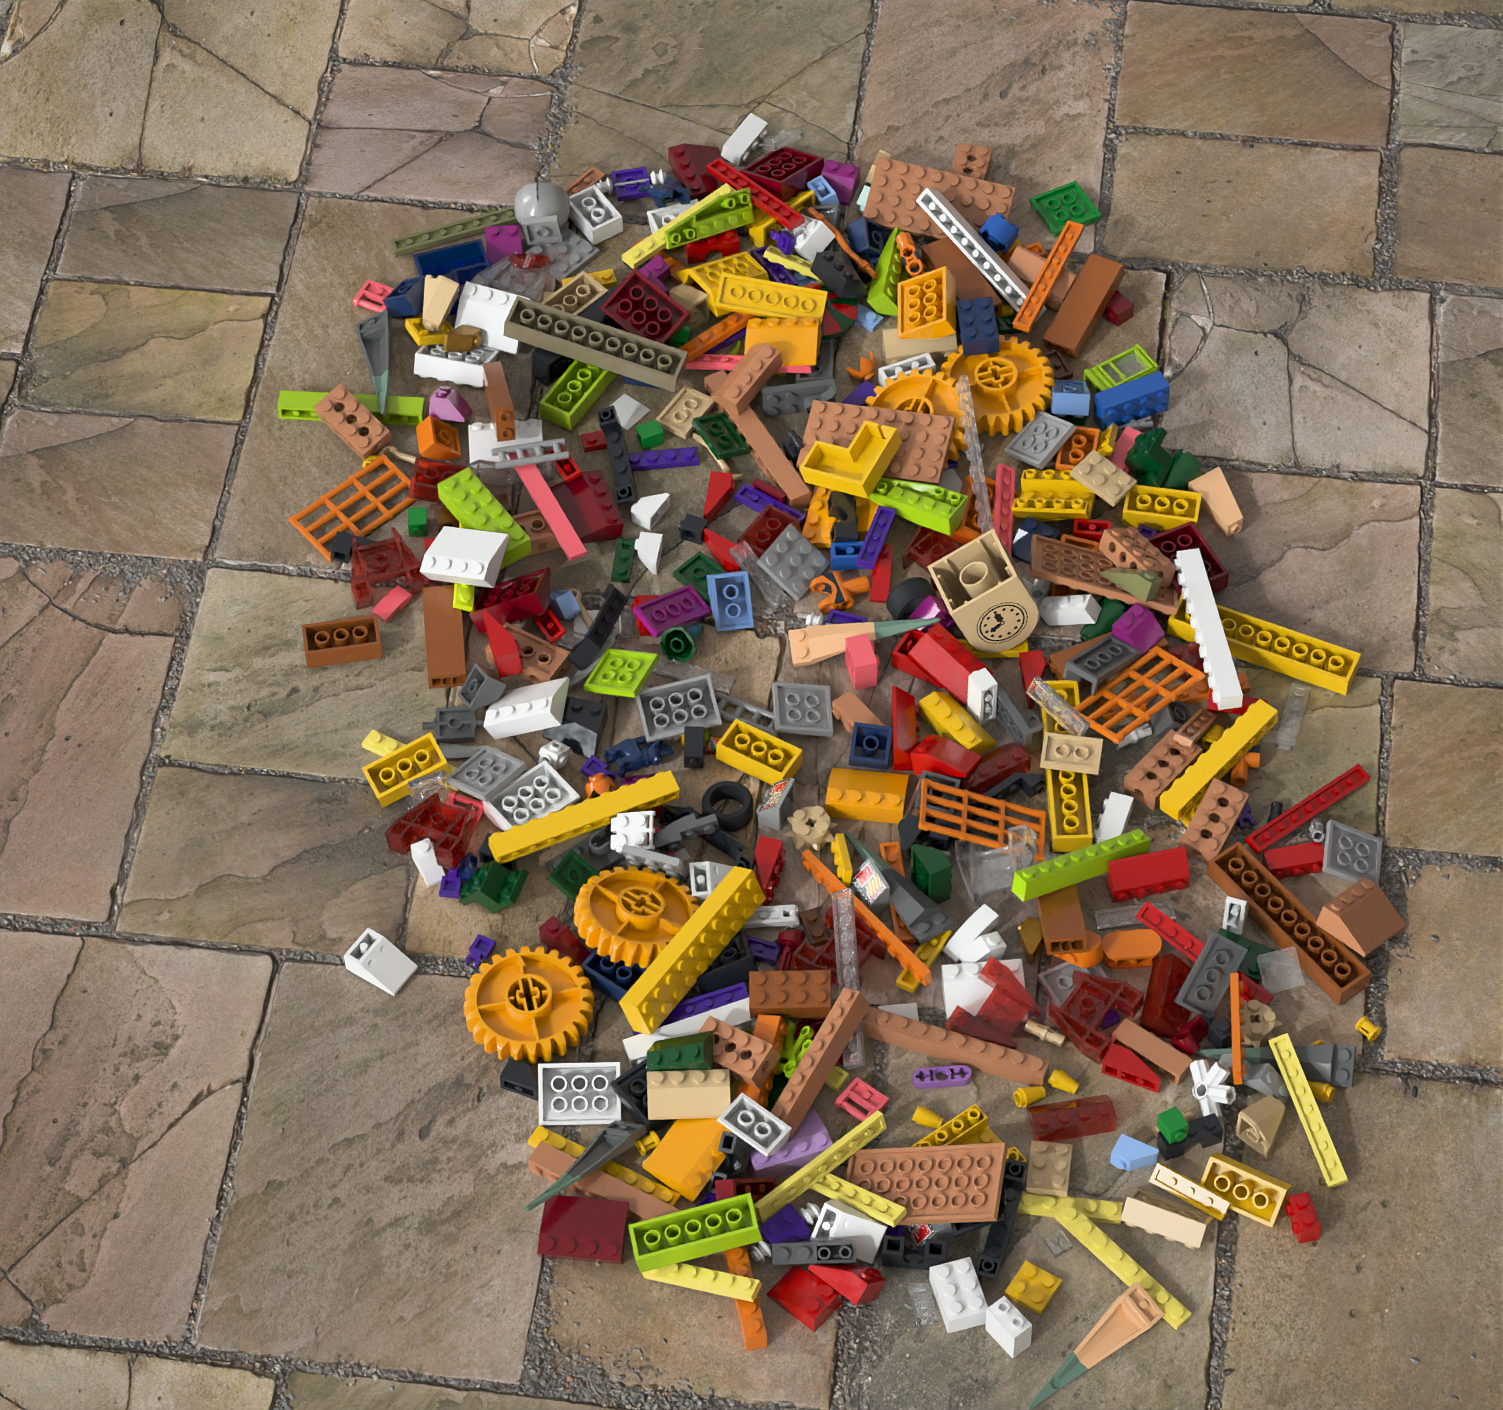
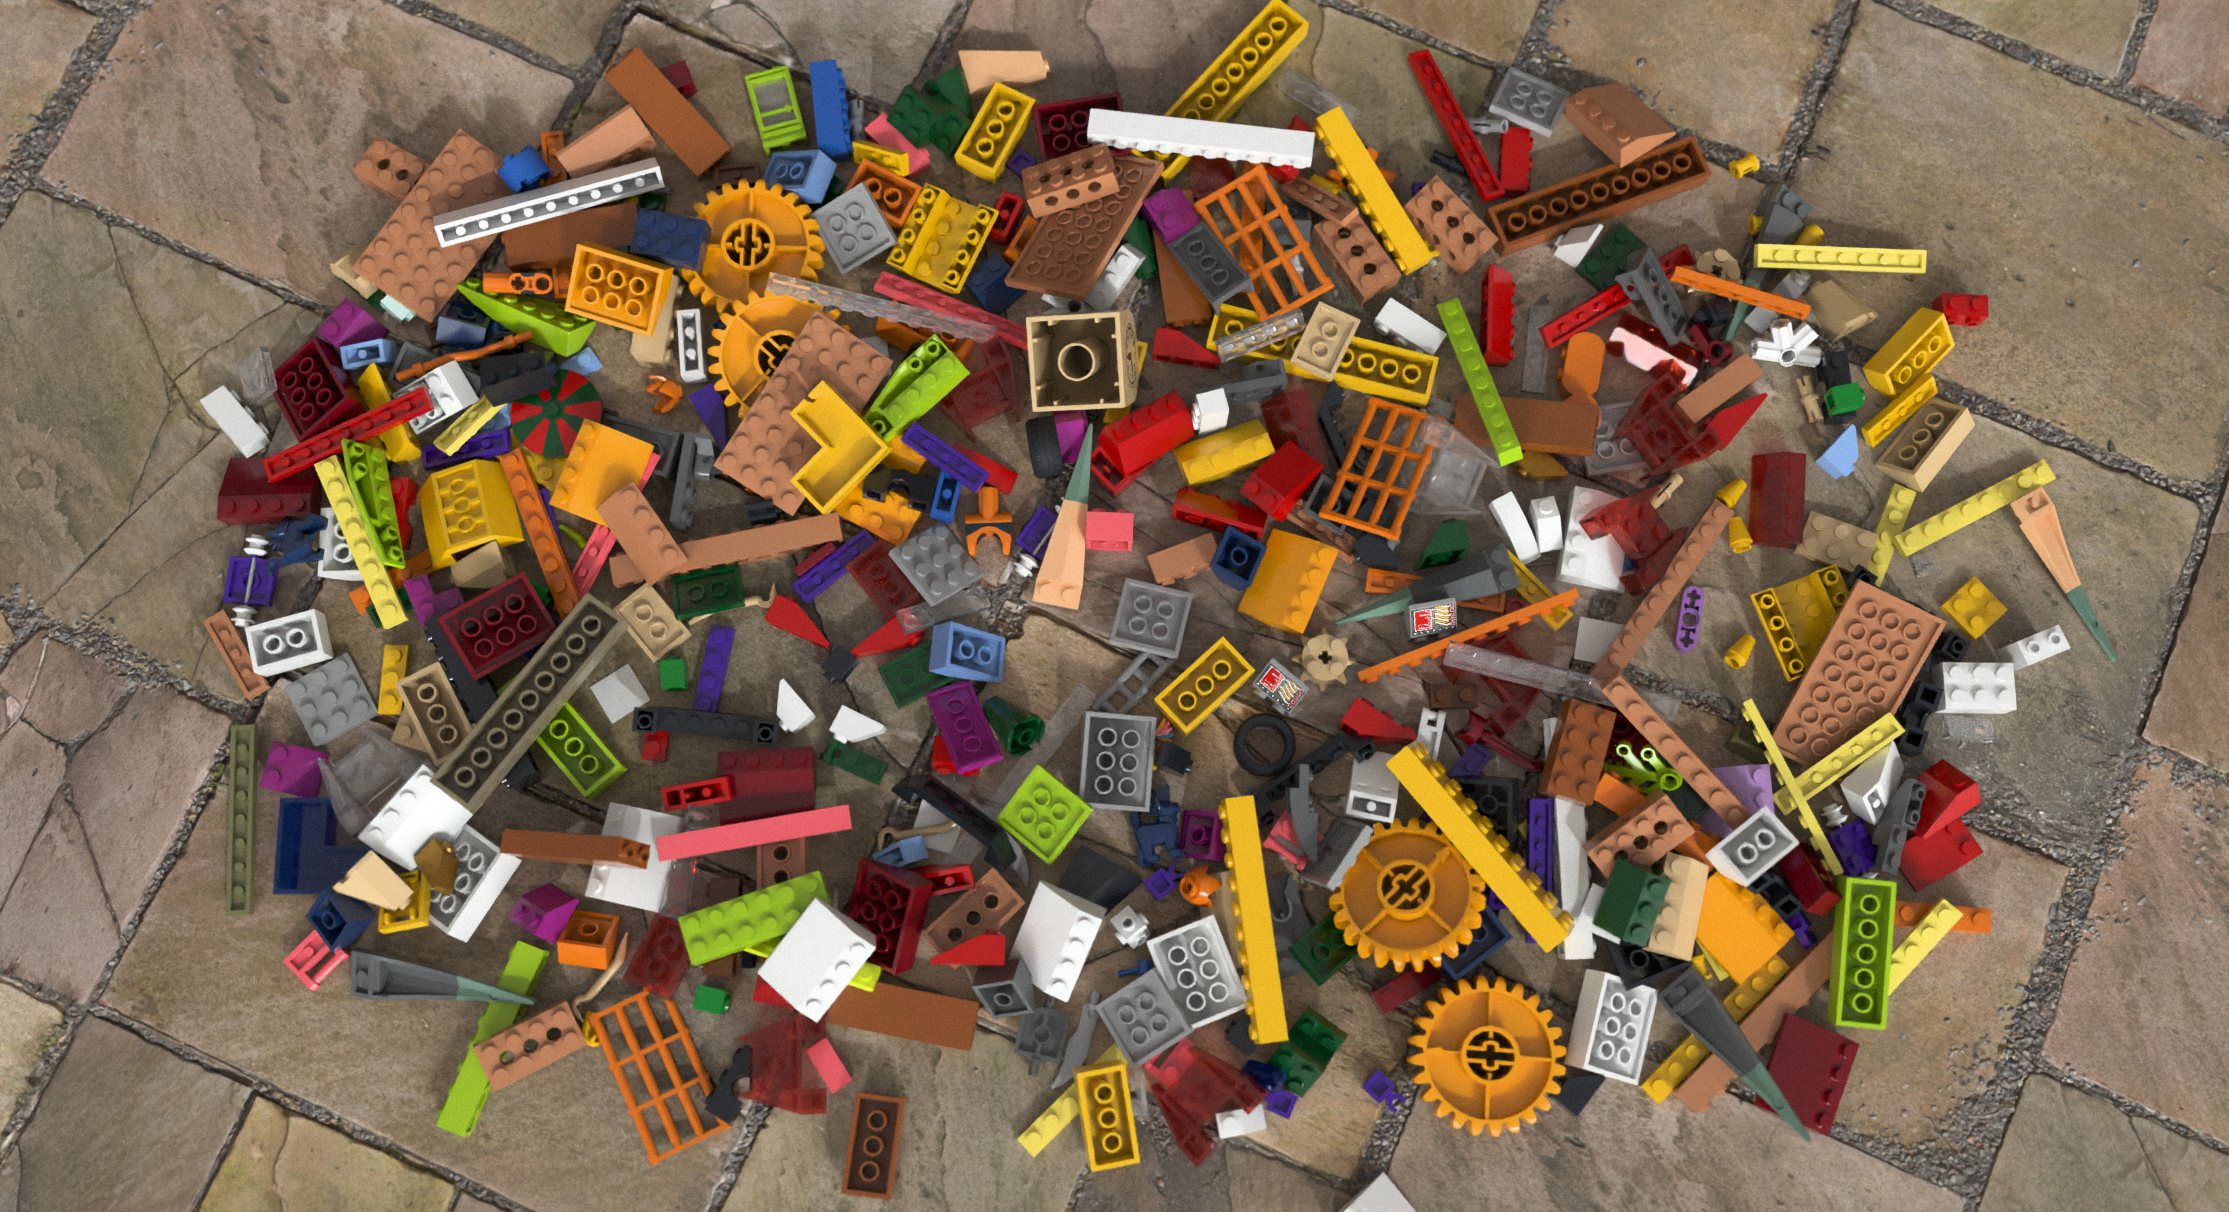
camera: 75 degrees left, 25 degrees up
(522, 460) = (666, 823): light grey bar -> none
(529, 261) = (341, 745): clear red slope -> none
(542, 217) = (281, 708): light grey plate -> none
(632, 830) = (1292, 867): white plate -> none
(769, 298) = (531, 468): yellow plate -> none
(785, 241) = (437, 421): dark purple plate -> none
(842, 859) = (1382, 638): yellow plate -> none
(864, 1096) = (1696, 709): coral plate -> none
(1048, 276) = (623, 134): orange plate -> none
(1065, 204) = (498, 87): green plate -> none
(1103, 478) = (944, 177): tan plate -> none
(1138, 582) = (1118, 191): olive slope -> none
(1281, 970) = (1657, 224): clear plate -> none

